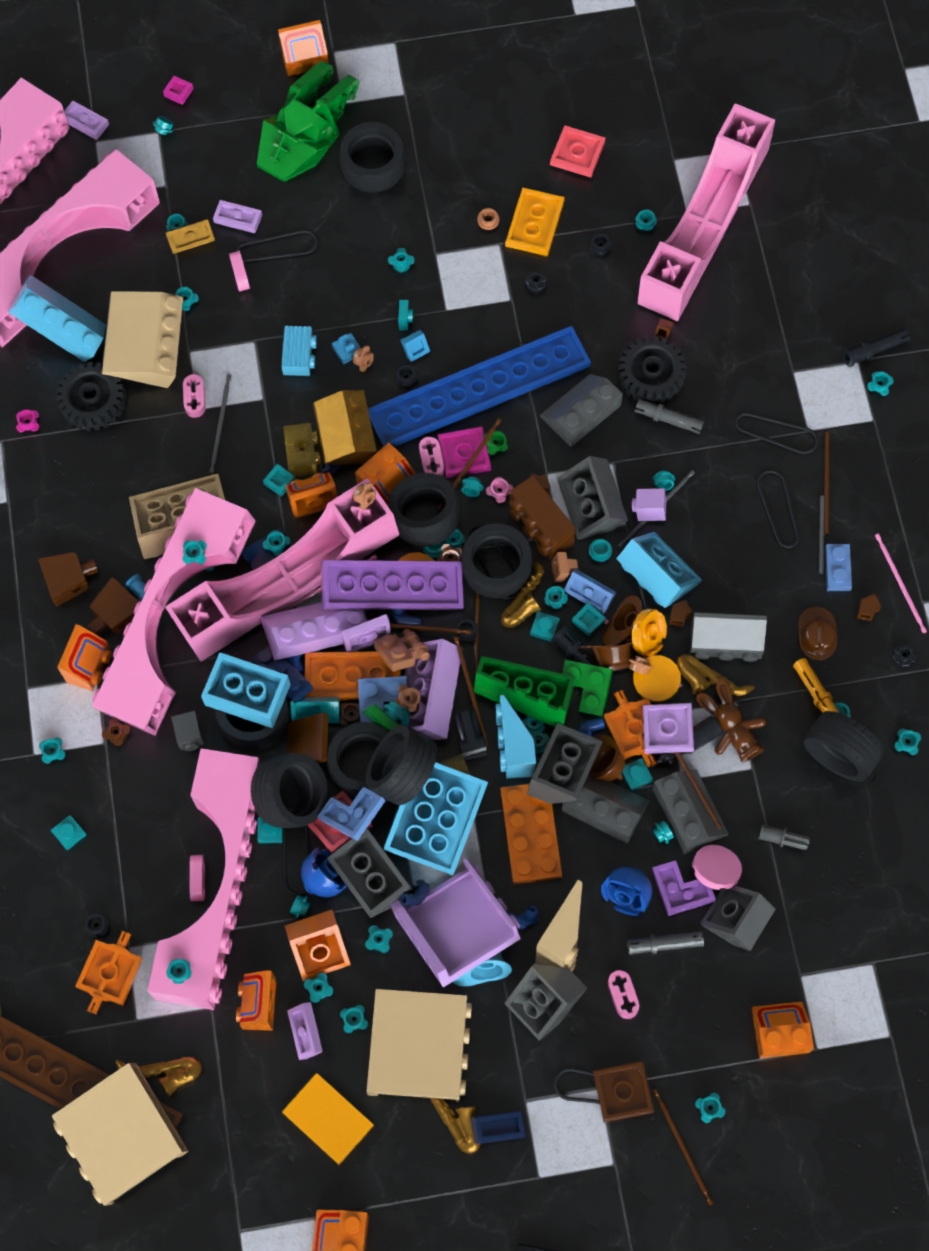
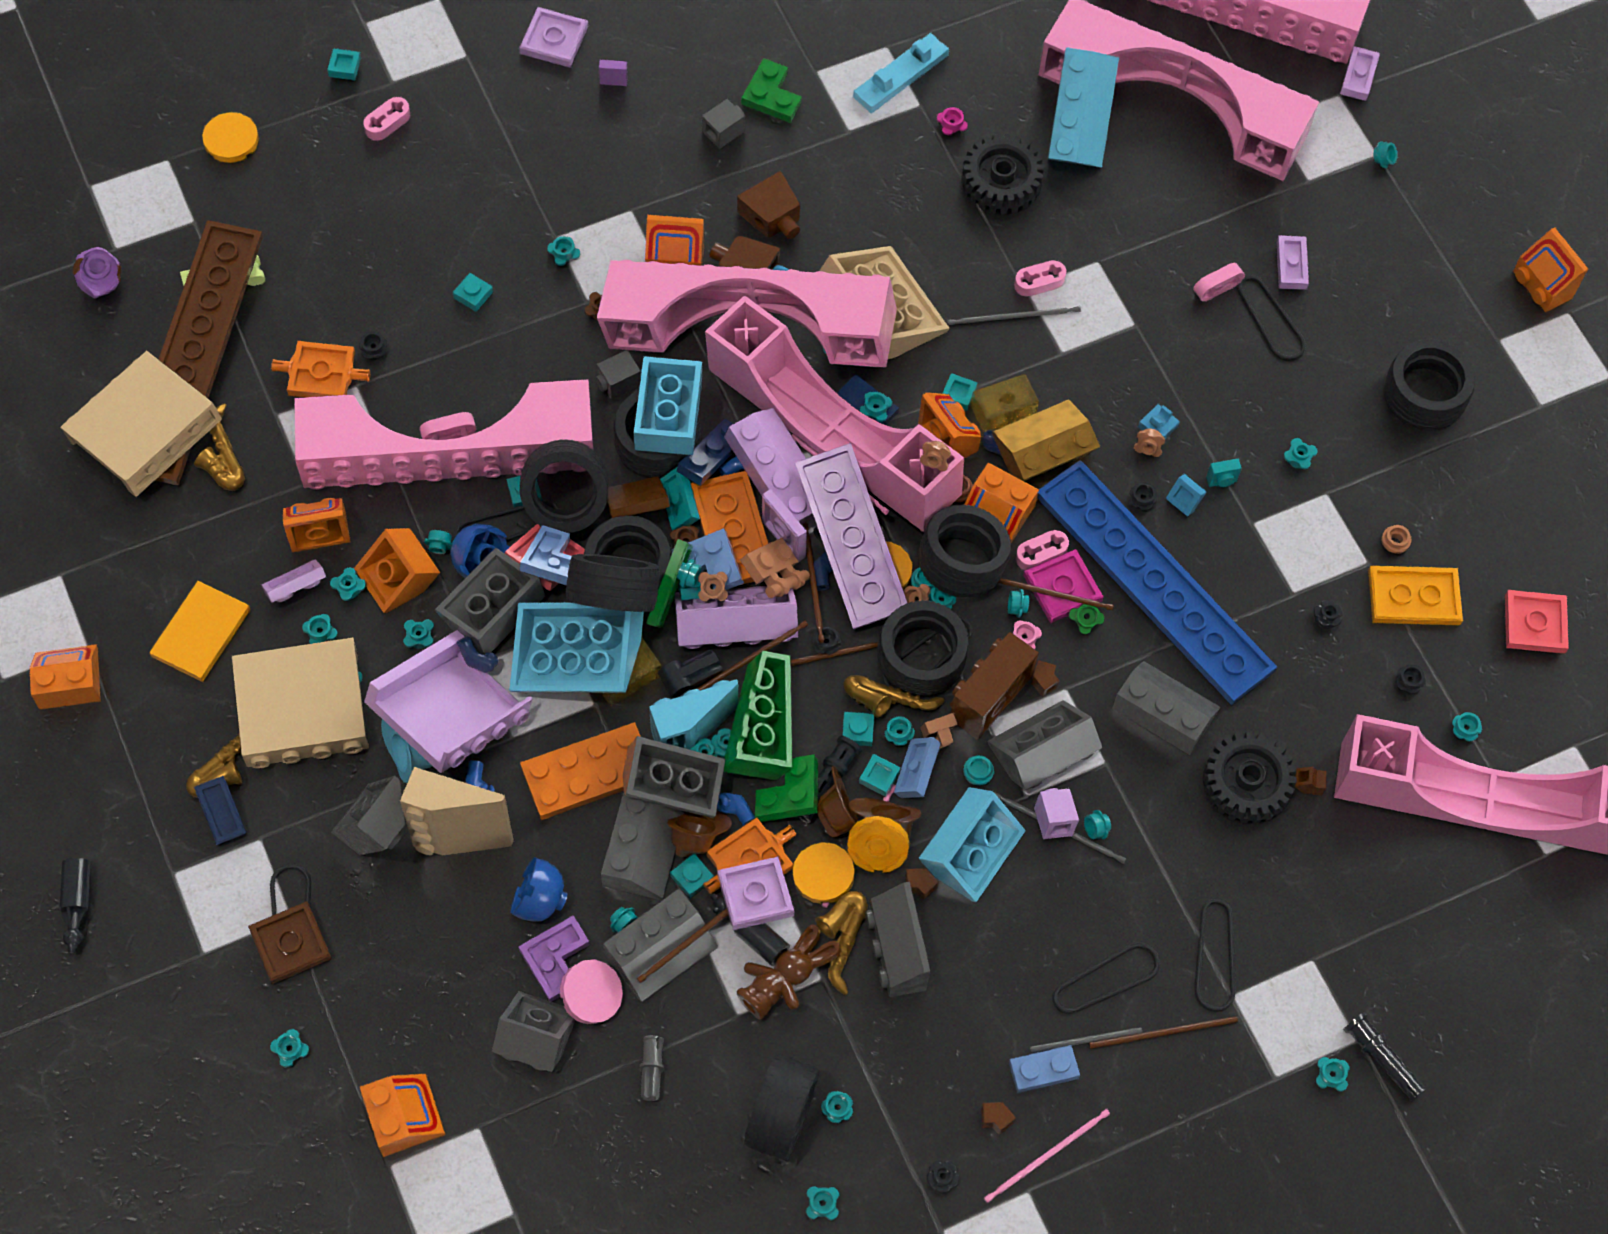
camera: 70 degrees right, 5 degrees down
(143, 337) = (1091, 200): tan slope -> none
(174, 965) = (320, 413): teal plate -> none
(176, 219) = (1258, 197): teal plate -> none
(178, 90) = (1440, 157): dark pink plate -> none
(186, 292) = (1166, 230): teal plate -> none
(189, 547) = (809, 291): teal plate -> none
(190, 236) = (1245, 219): pearl gold plate -> none
(297, 351) = (1134, 369): medium azure brick -> none
(302, 135) = (1424, 301): green connector -> none
(617, 996) = (405, 912): bright pink beam -> none
(640, 665) = (830, 842): nougat plate -> none
(665, 942) = (478, 940): dark grey pin -> none
(669, 416) = (1191, 806): dark grey pin -> none
(683, 1147) = (236, 1028): reddish brown piece -> none
(817, 633) = (944, 1061): reddish brown piece -> none
(821, 698) = (848, 1076): light orange pin -> none

